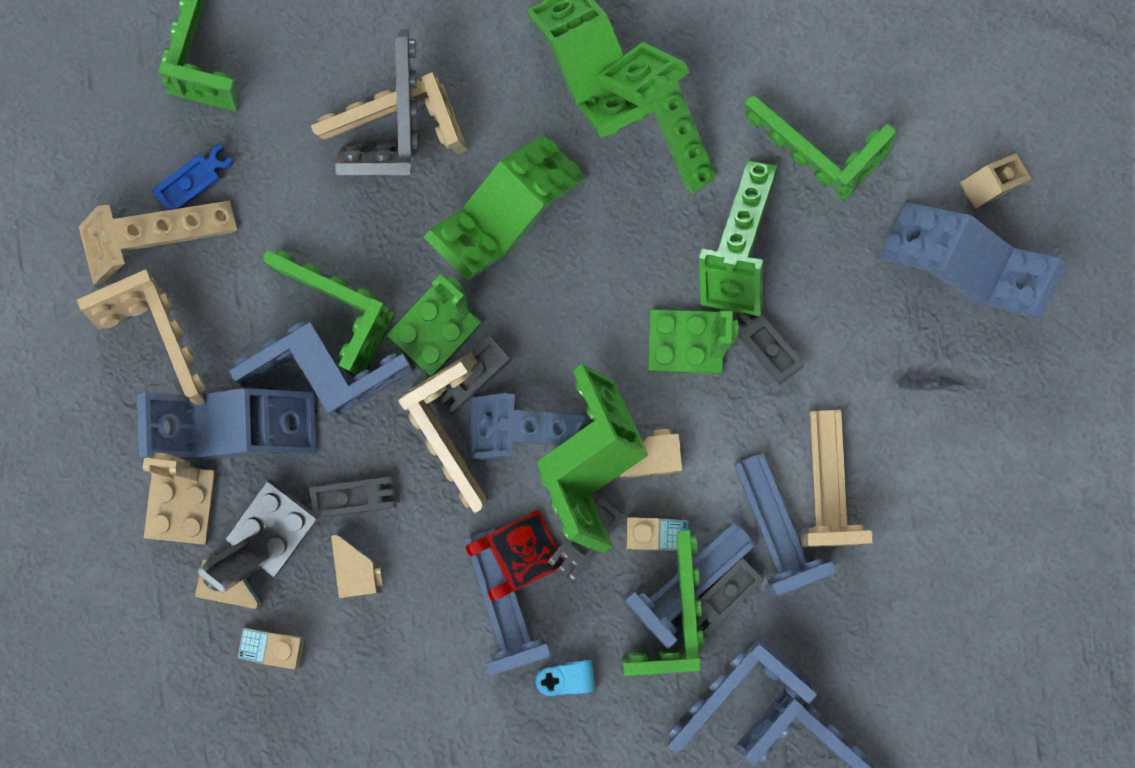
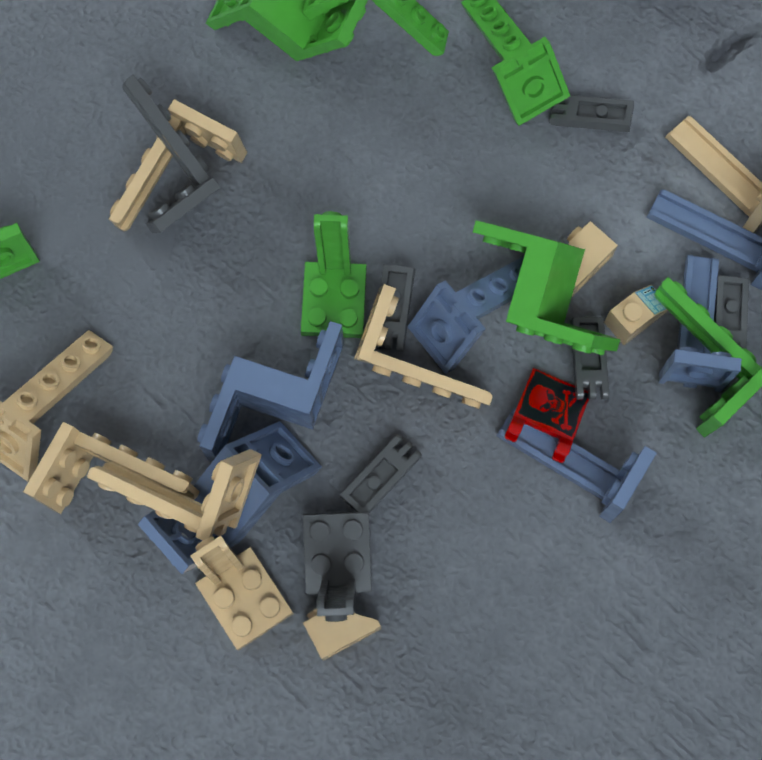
camera: 40 degrees left, 10 degrees down
(185, 432) = (219, 509): none -> tan bracket
(191, 180) = (44, 335): blue plate -> none
(271, 648) = (418, 651): tan slope -> none
(354, 570) = (432, 530): tan slope -> none
(367, 329) = (234, 324): bright green bracket -> none
(505, 207) = (313, 157): bright green bracket -> none
(572, 677) = (673, 474): medium azure piece -> none
(690, 340) = (542, 148): bright green bracket -> none

